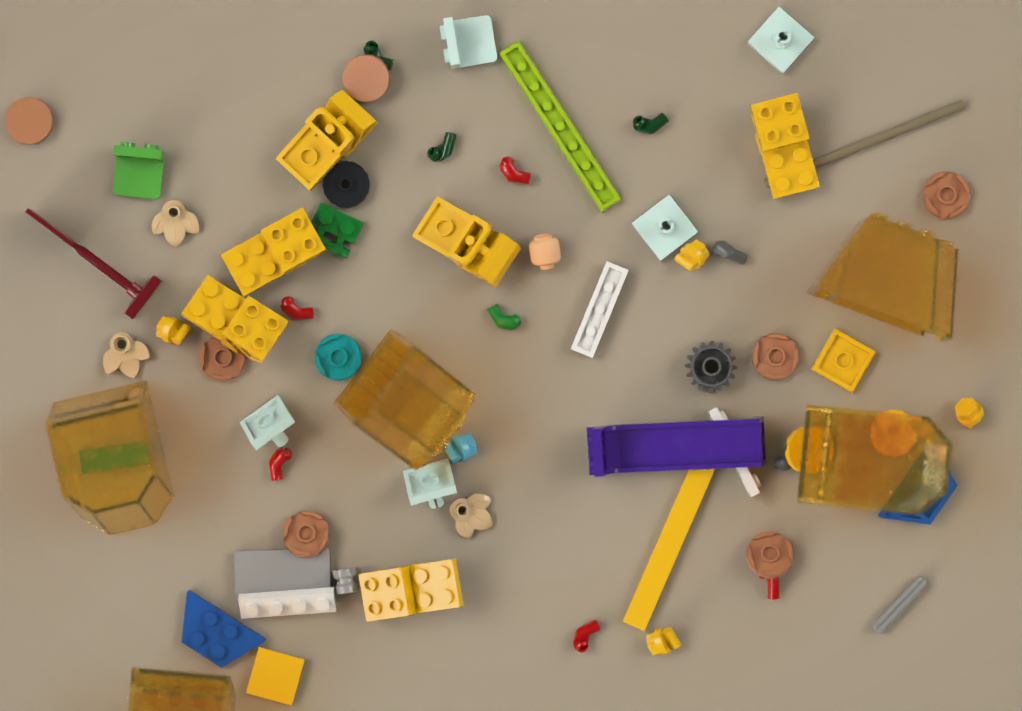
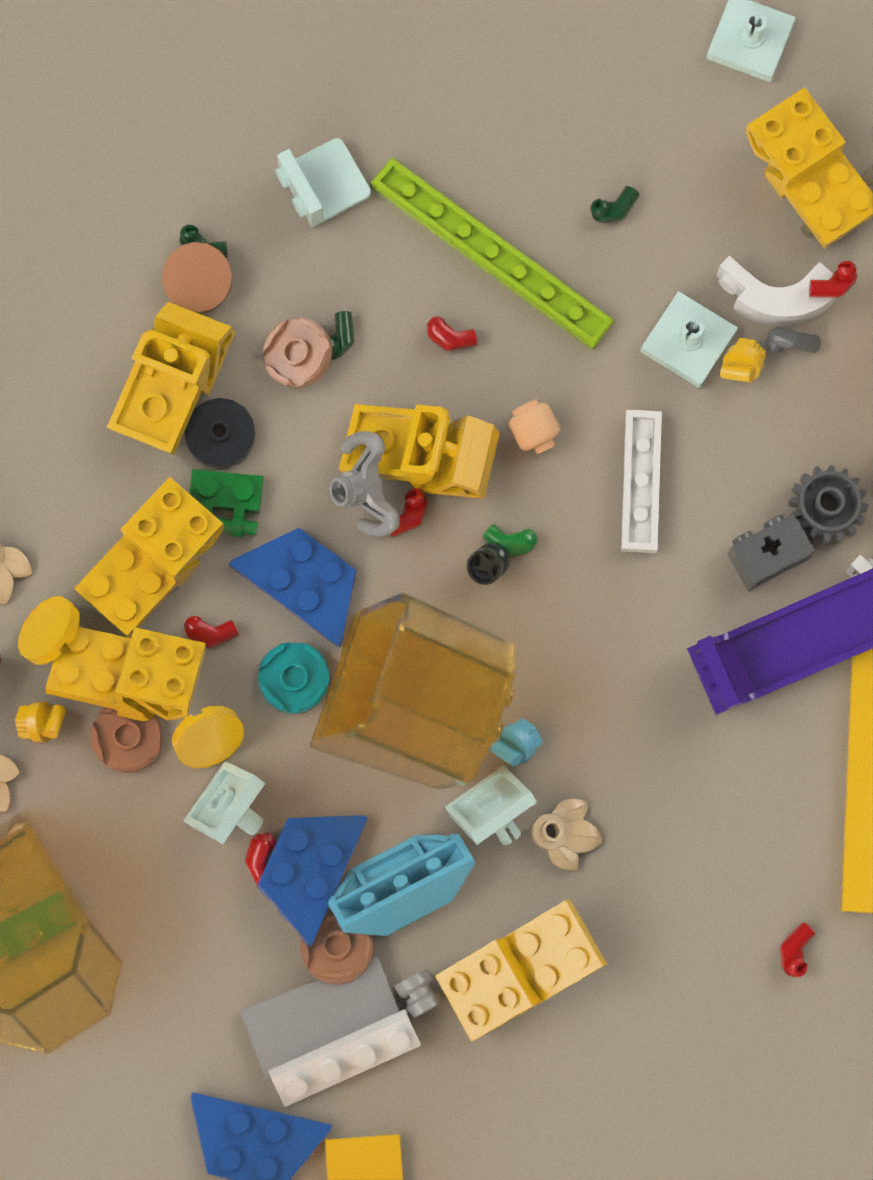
camera: 25 degrees left, 10 degrees down
(195, 275) = (48, 629): none -> yellow tile
(271, 378) = (208, 737): none -> yellow tile
(305, 480) = (309, 868): none -> blue wing
(357, 510) = (401, 884): none -> medium azure wedge
(365, 297) = (303, 580): none -> blue wing
(412, 150) = (297, 352): none -> nougat tile
(422, 254) = (364, 486): none -> light grey piece
(448, 279) = (413, 512): none -> red arm
(483, 329) = (482, 568): none -> black wheel
(651, 391) = (758, 568): none -> dark grey brick
(733, 228) = (773, 304): none -> white arch
(769, 229) = (838, 283): none -> red arm

